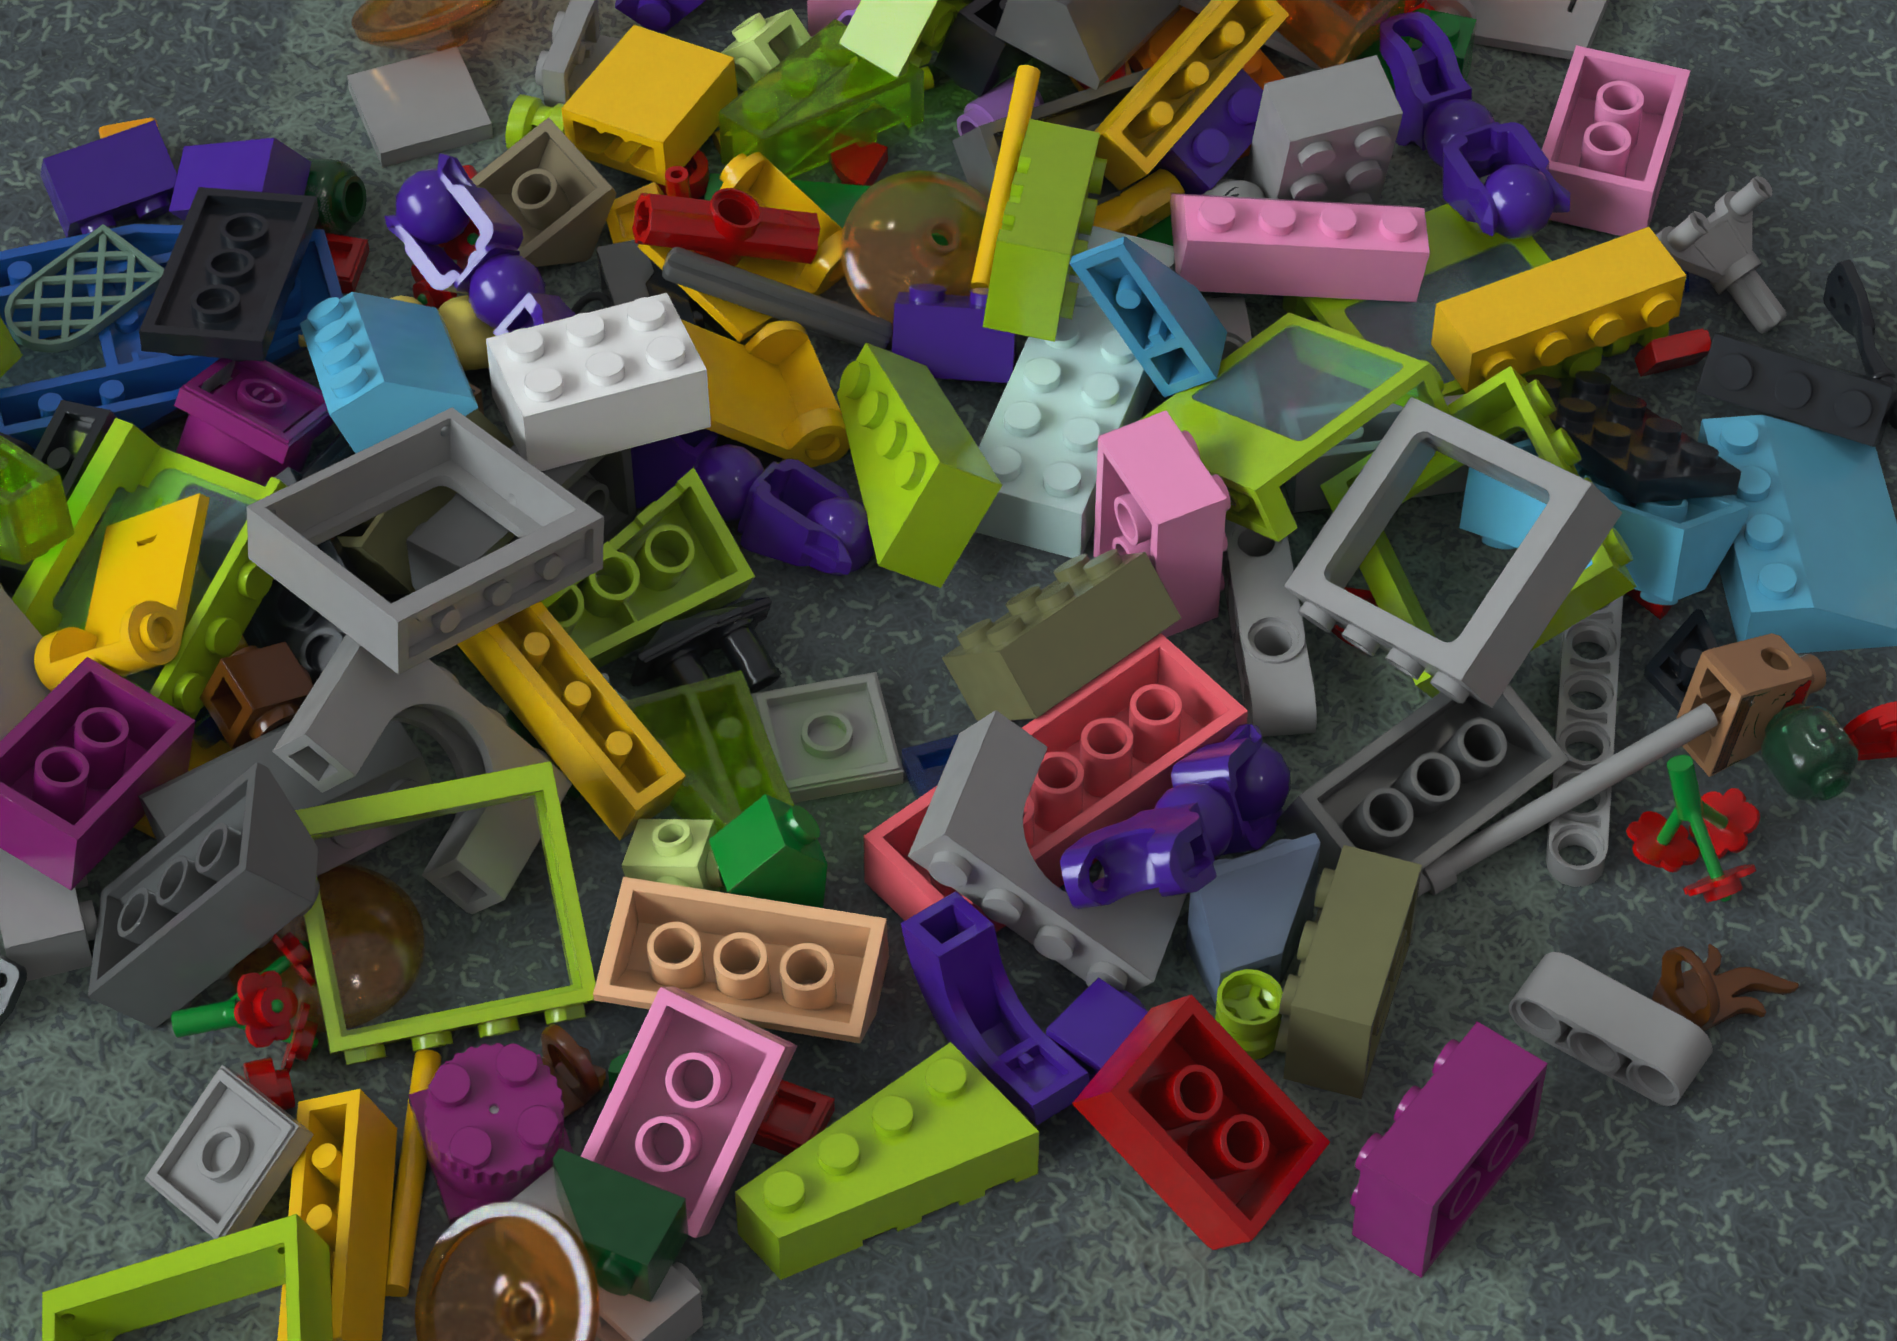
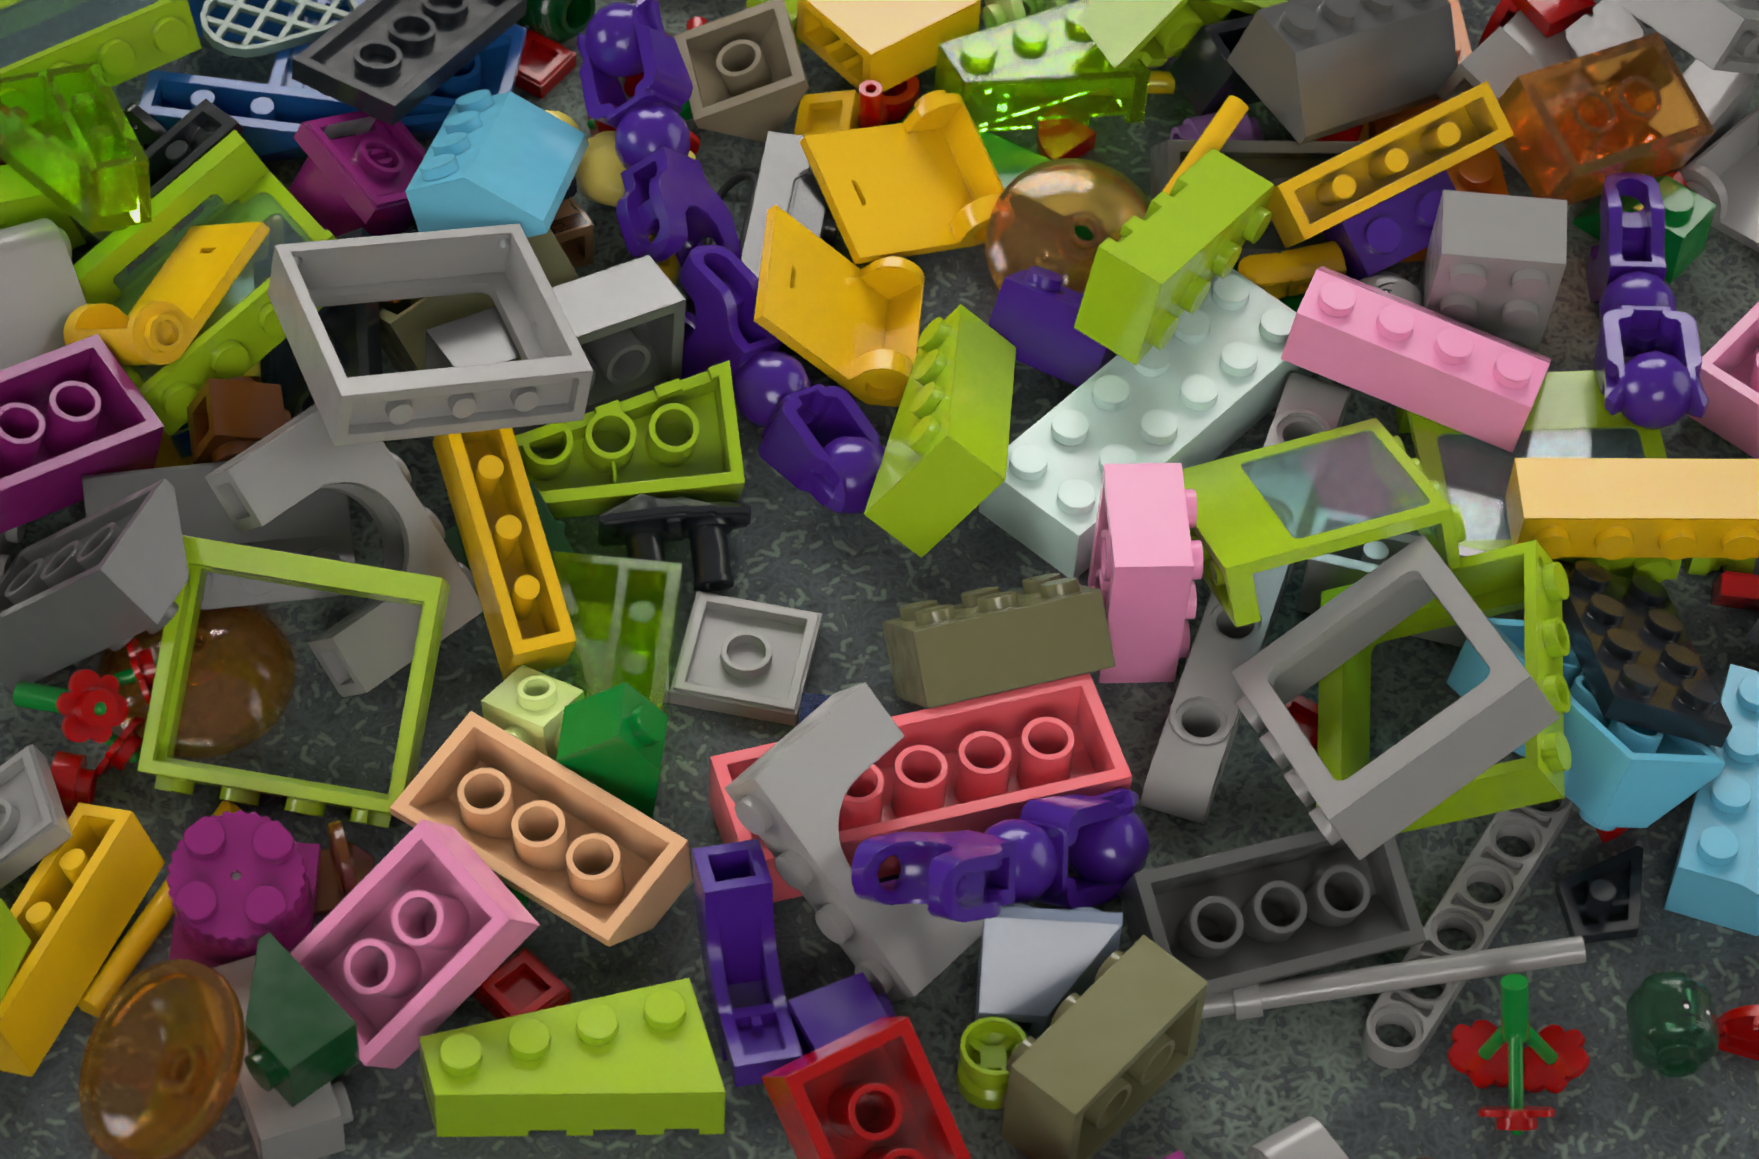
camera: 20 degrees right, 0 degrees up
(599, 382) = (670, 249): white brick -> none
(726, 227) = (887, 153): red piece -> none
(775, 299) = (903, 234): dark grey axle -> none
(1155, 314) = (1234, 371): dark azure slope -> none
(1745, 690) = (1631, 937): medium nougat torso -> none

